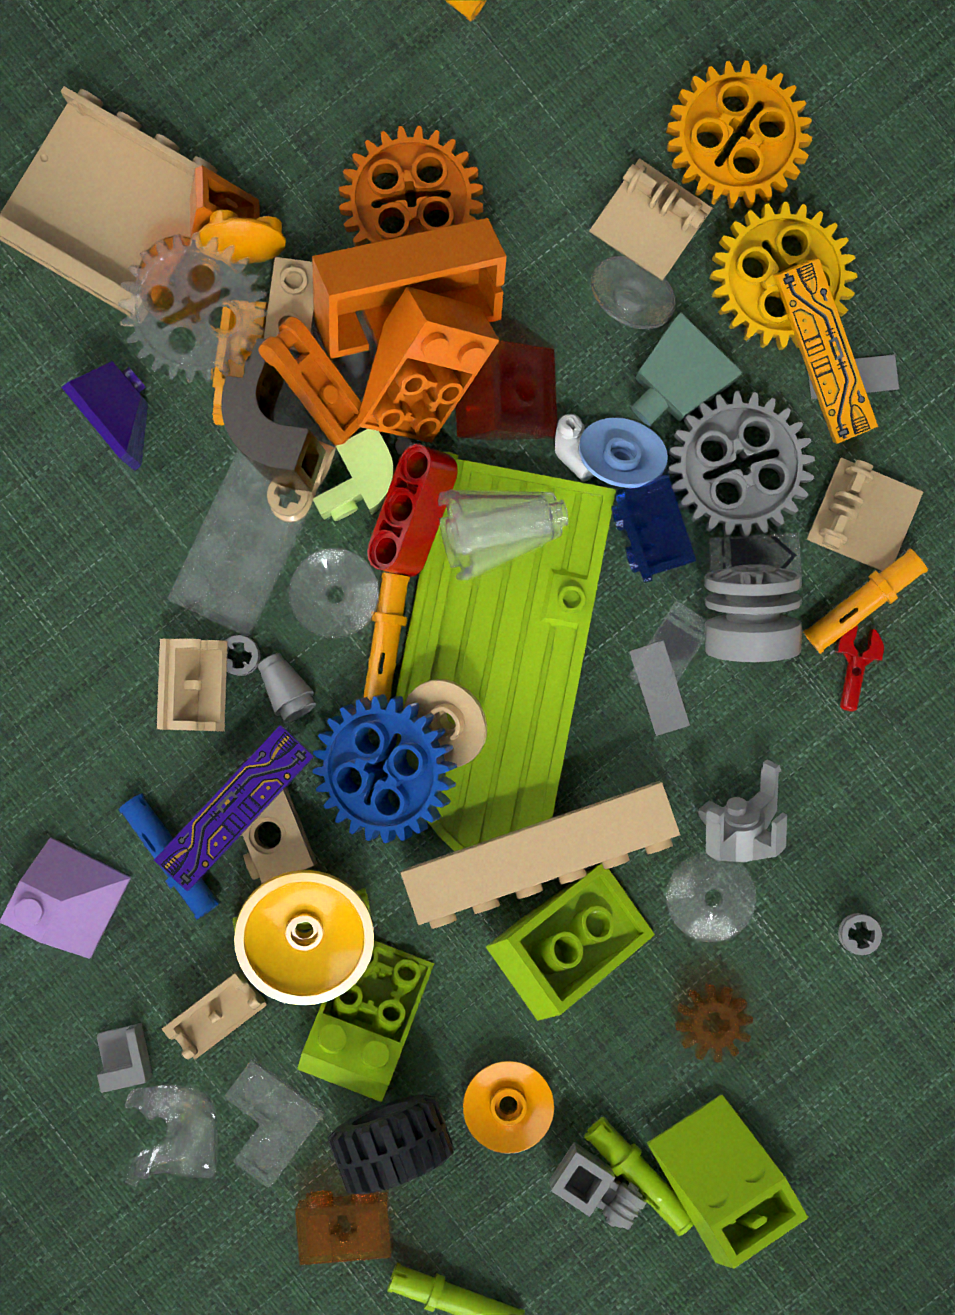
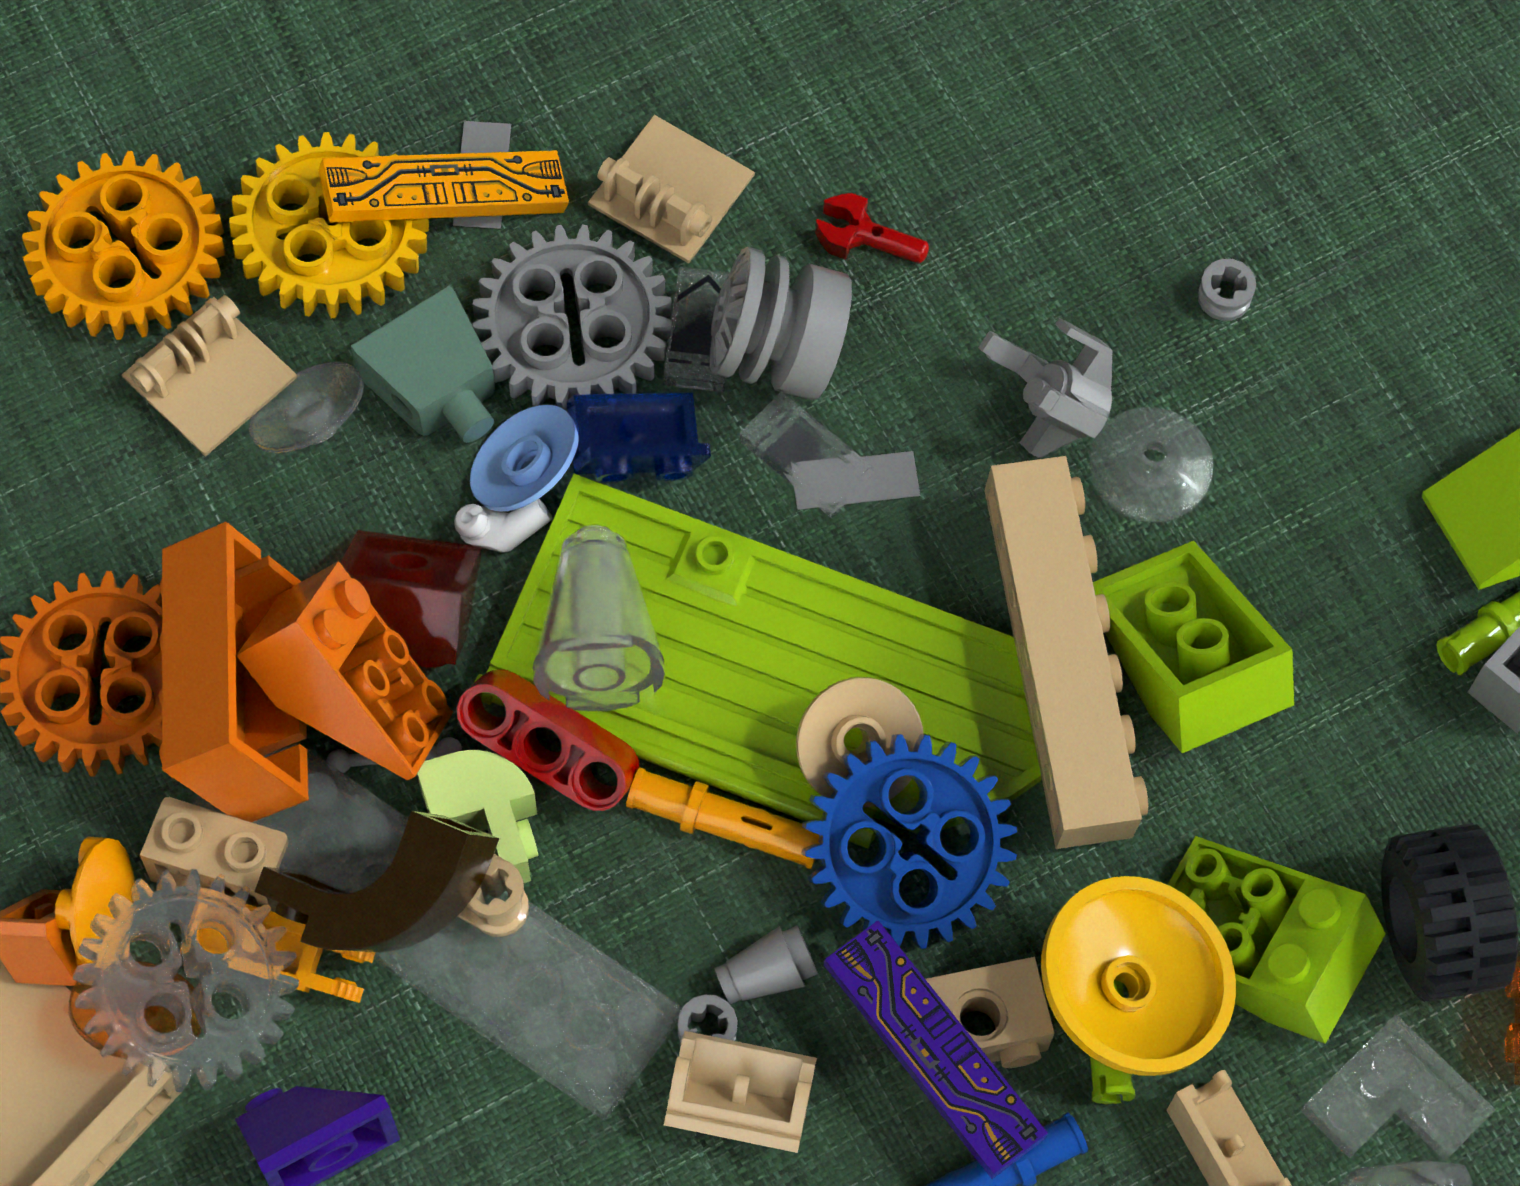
camera: 85 degrees left, 20 degrees down
(314, 380) = (330, 824): orange plate -> none
(317, 577) = (637, 842): clear dish -> none
(508, 1130) = (1427, 741): light orange dish -> none
(725, 1010) = (1347, 486): clear orange gear -> none
(866, 600) = (775, 183): light orange pin -> none

